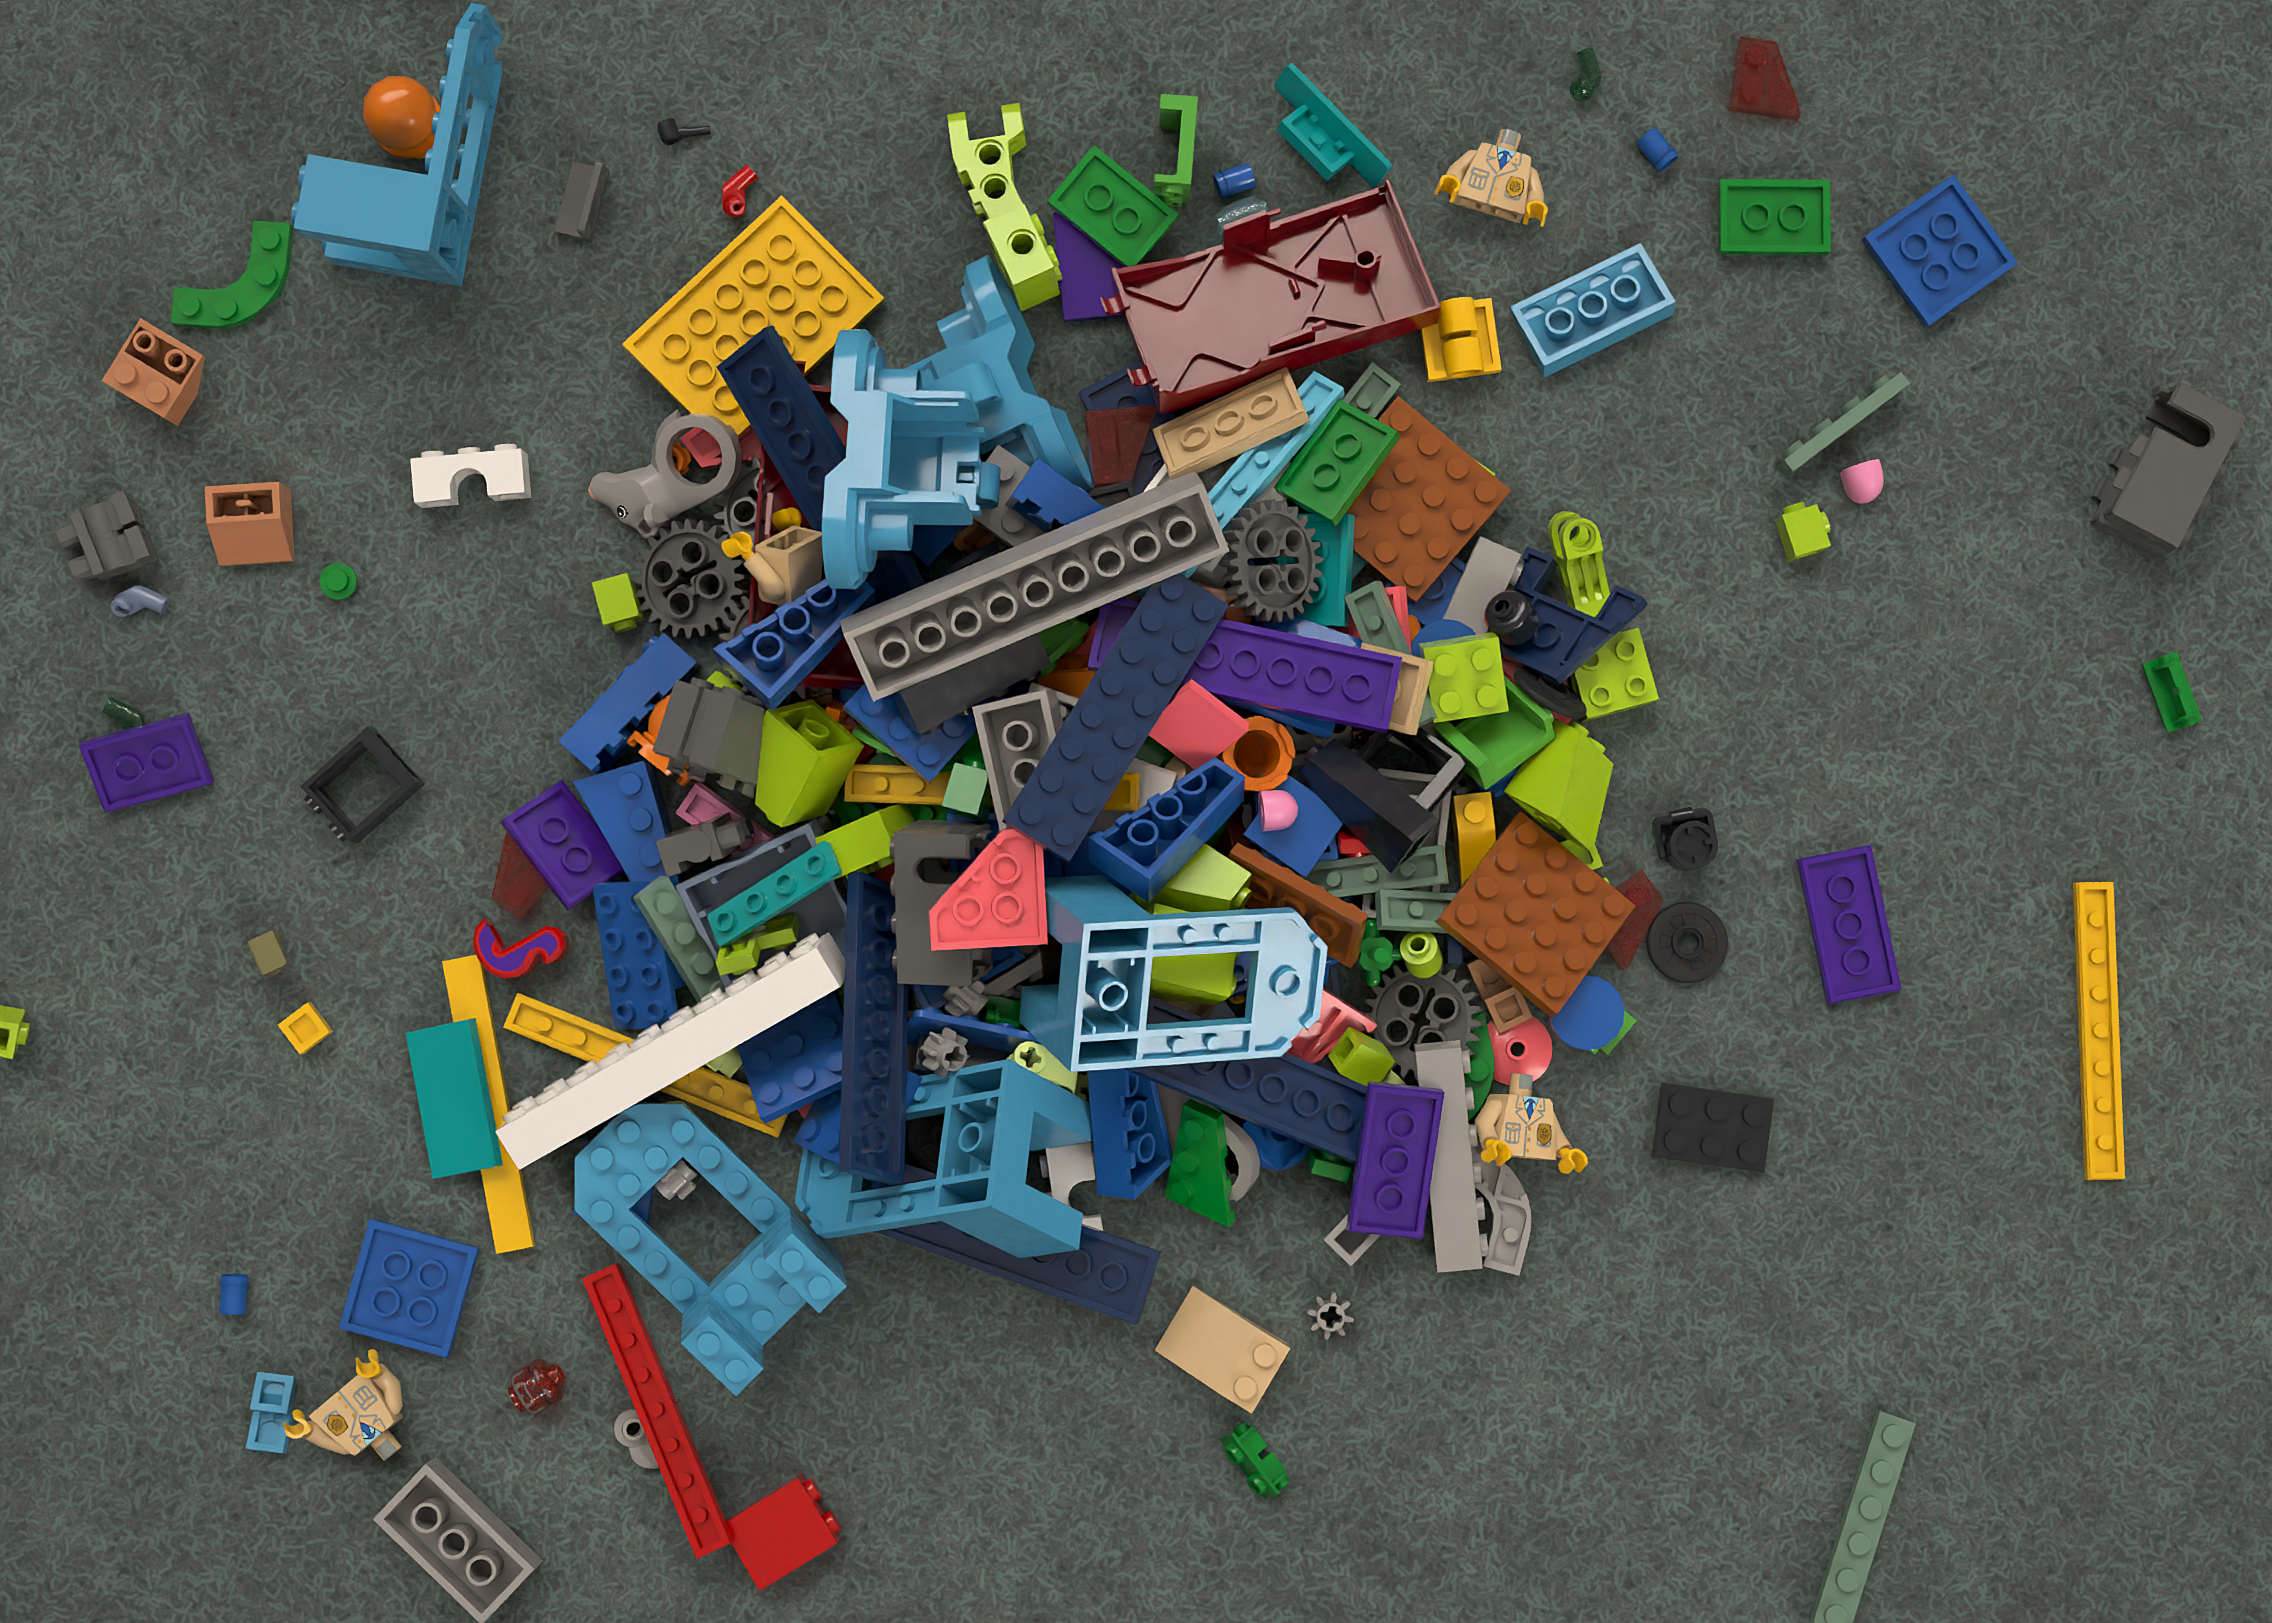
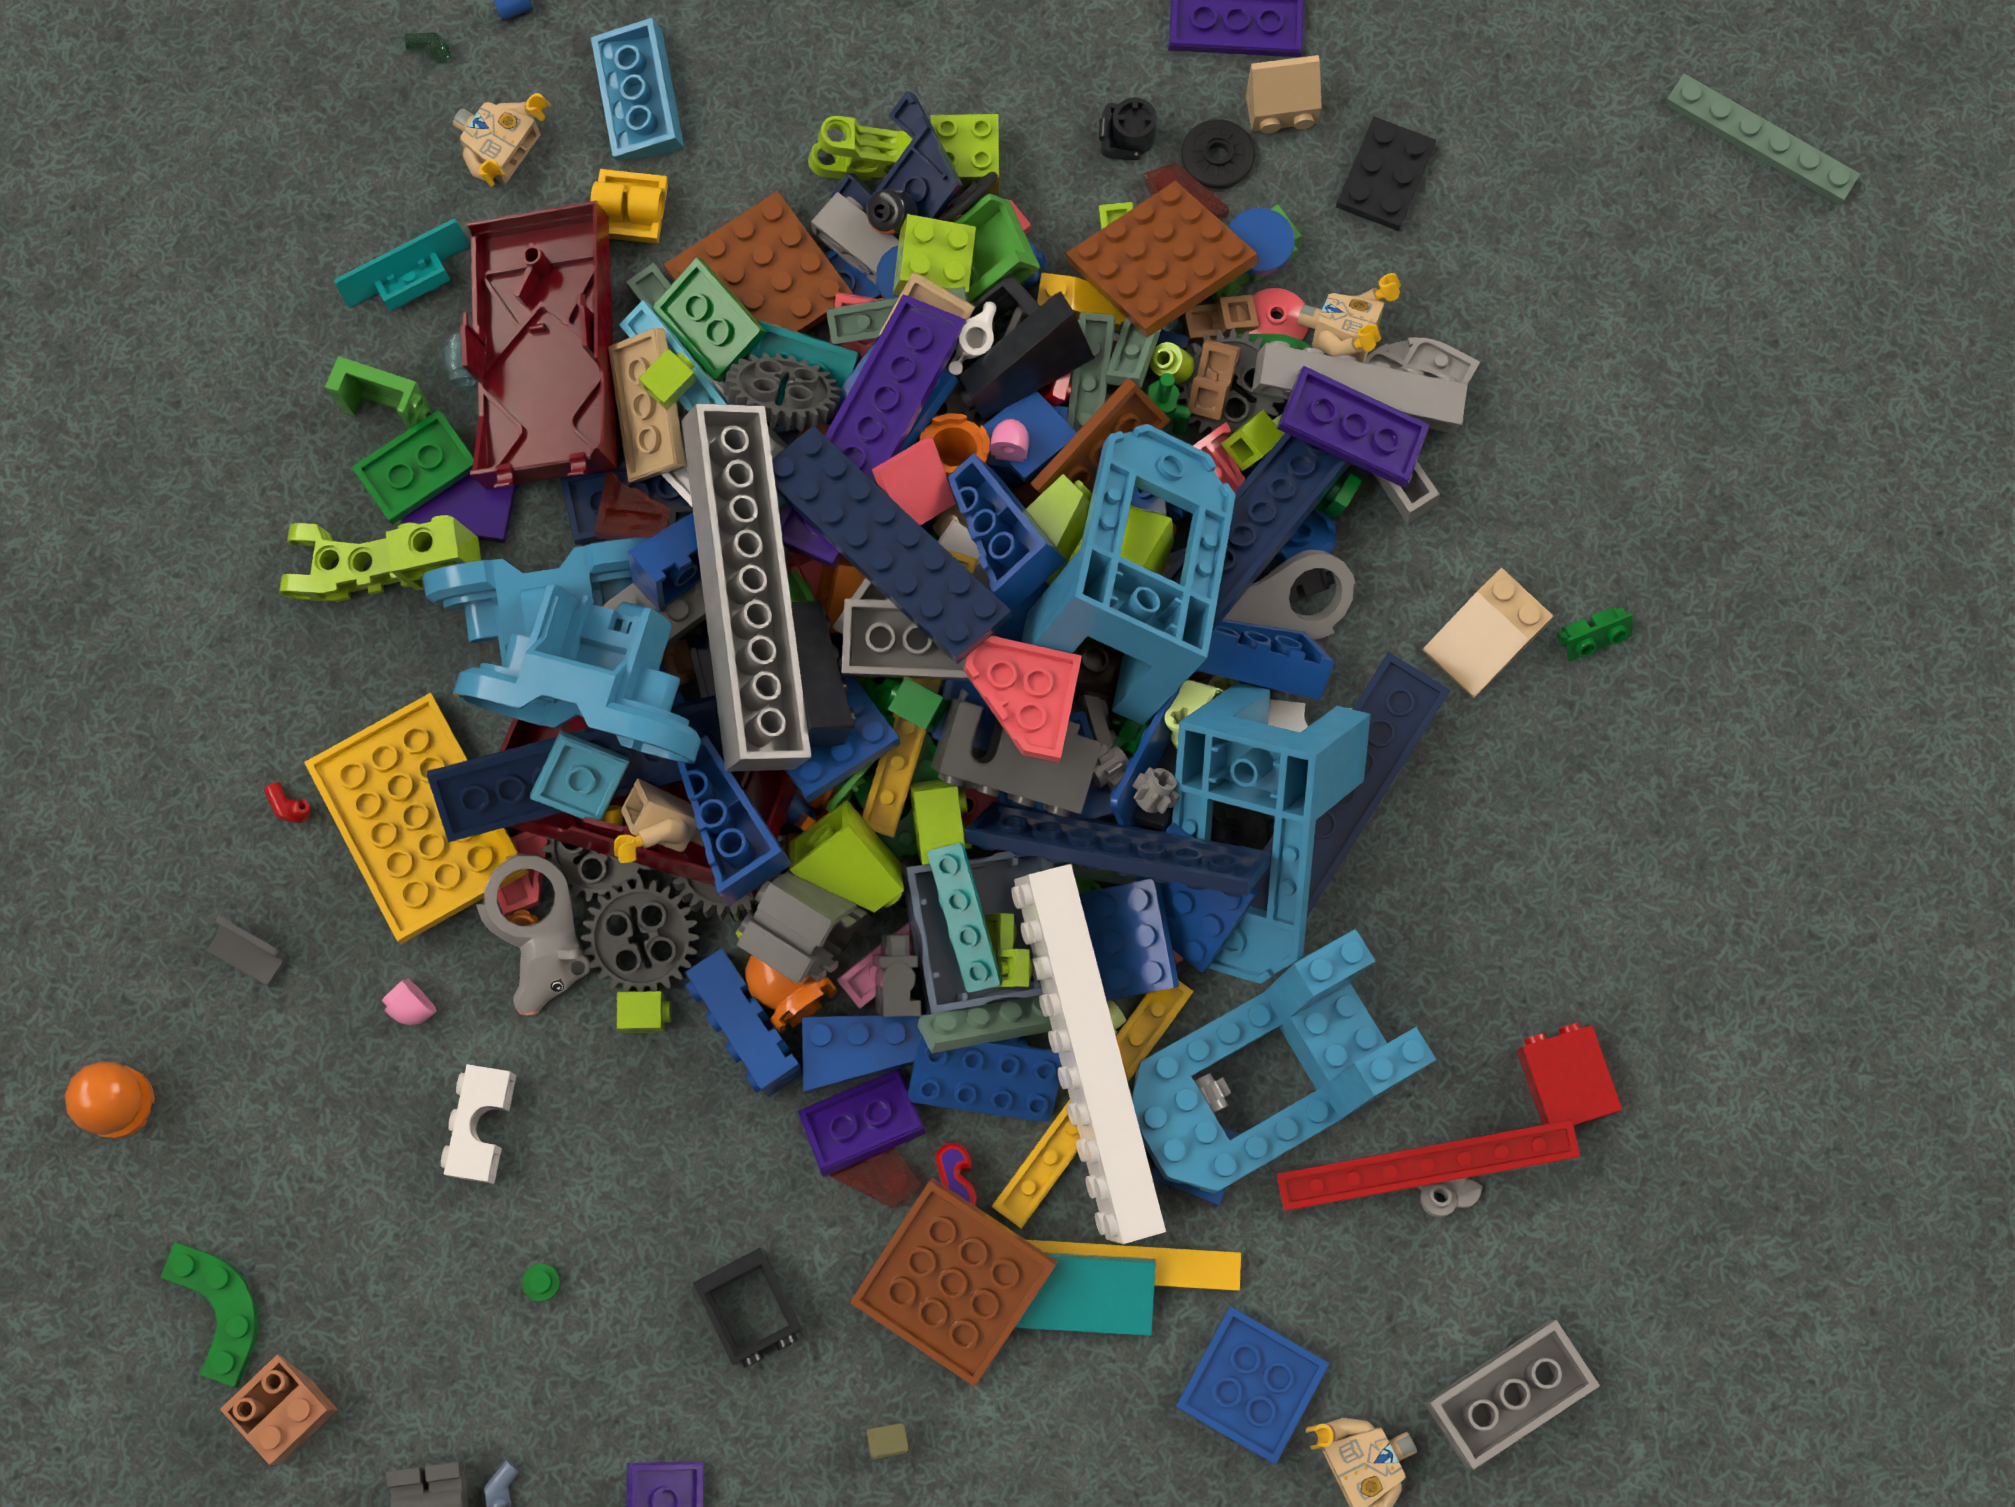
camera: 75 degrees left, 10 degrees down
(250, 523) = (458, 1353): nougat slope -> none
(305, 1028) = (971, 1426): yellow plate -> none
(404, 218) = (203, 1119): dark azure bracket -> none
(429, 976) = (953, 1282): none -> dark orange plate
(537, 1386) = (1377, 1281): clear red head -> none
(570, 373) = (408, 1004): none -> bright pink piece
(671, 134) = (211, 853): black hand -> none
(801, 472) = (579, 777): none -> medium azure tile
(1198, 1164) = (1314, 605): green wing -> none
(1234, 180) = (423, 360): blue piece -> none
(1250, 441) = (668, 378): none -> lime brick
(1336, 1324) = (1474, 542): light grey gear -> none
(1378, 746) = (974, 338): none -> white piece
(1416, 1001) = (1214, 379): none -> medium nougat slope
(1565, 784) = (1054, 210): lime slope -> none
(1765, 998) = (1284, 94): none -> tan slope

